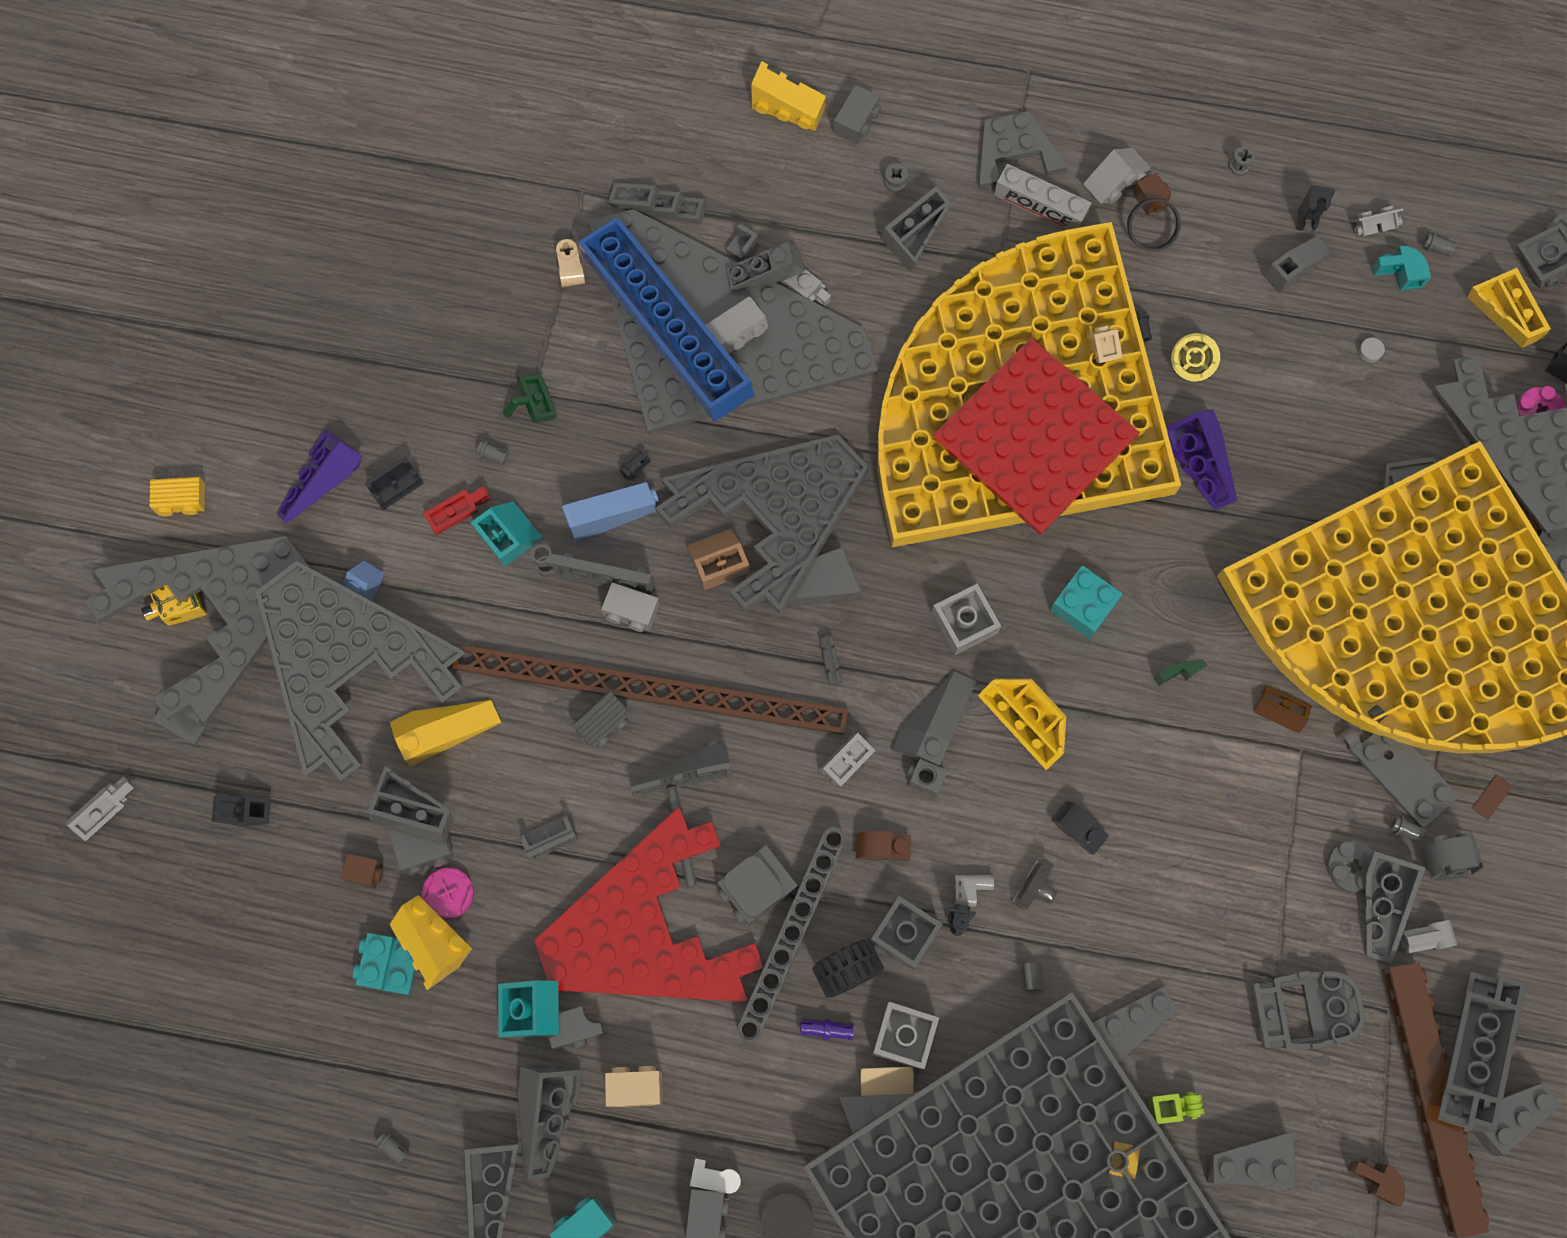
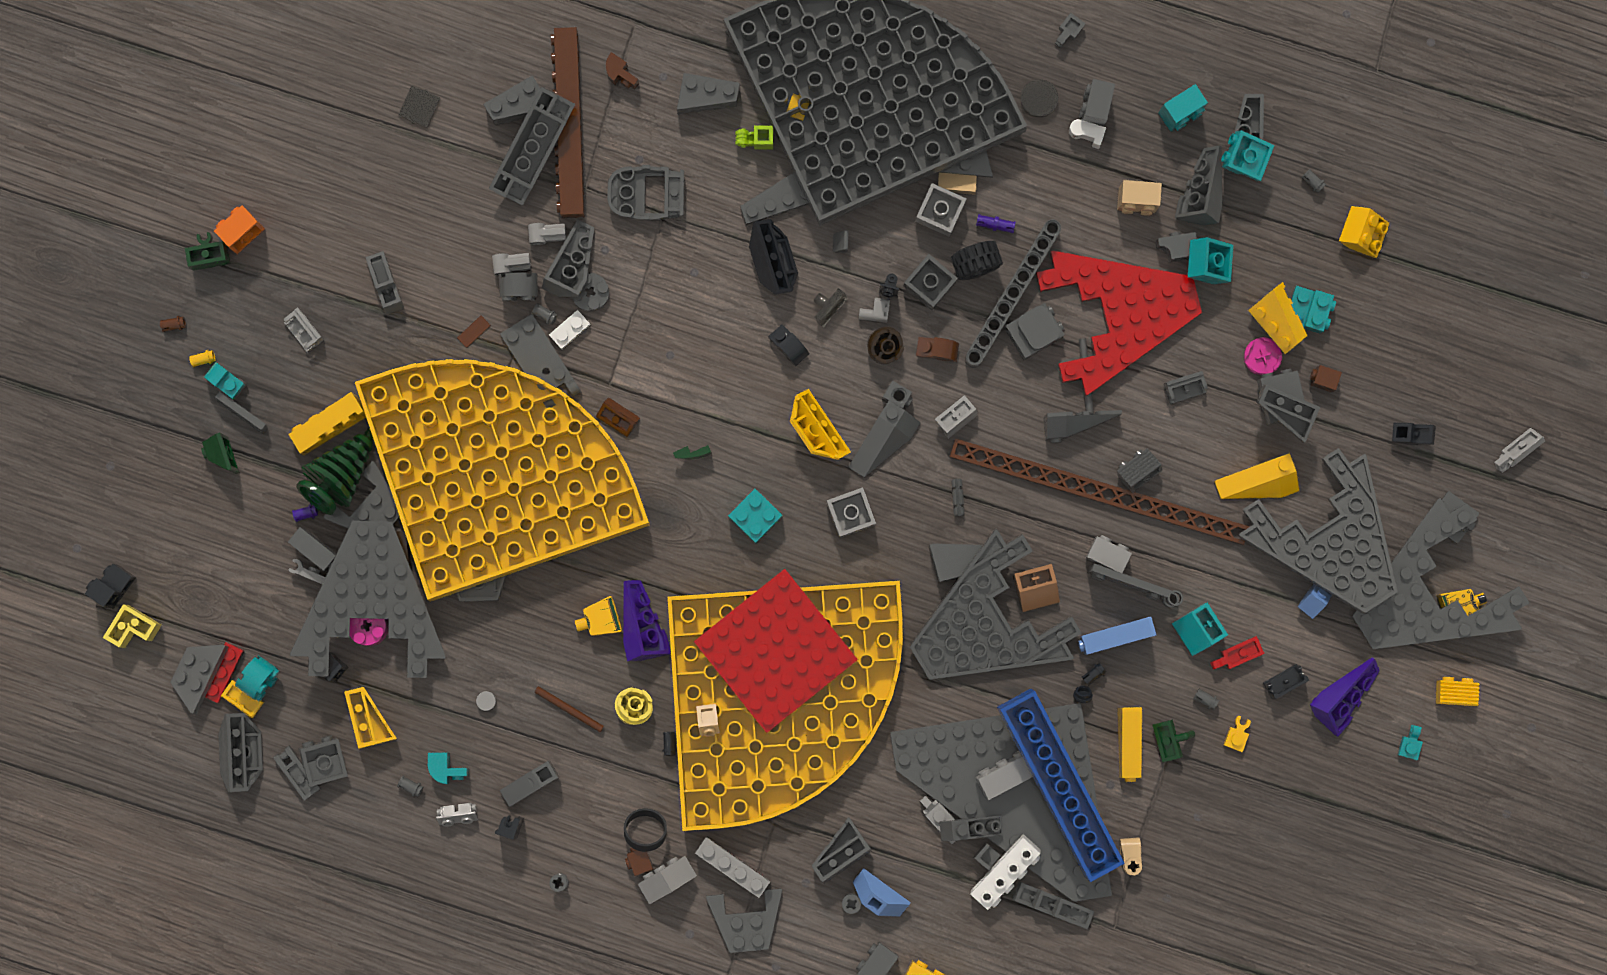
camera: 175 degrees left, 10 degrees up
(234, 428) = (1410, 746): none -> teal plate
(317, 1083) = (1364, 231): none -> yellow slope
(450, 415) = (1236, 737): none -> yellow plate
(488, 1163) = (1247, 155): none -> teal plate
(583, 390) = (1130, 743): none -> yellow slope
(646, 439) = (1083, 694): none -> black plate
(717, 227) = (1005, 872): none -> white brick
(866, 186) = (879, 896): none -> medium blue slope
(954, 838) = (885, 345): none -> dark brown cone
(1120, 940) = (772, 257): none -> black wedge
(1254, 457) = (600, 618): none -> yellow torso
(1269, 352) = (569, 709): none -> reddish brown bar
(1369, 813) = (569, 329): none -> white plate
(1472, 888) = (510, 263): none -> light grey piece

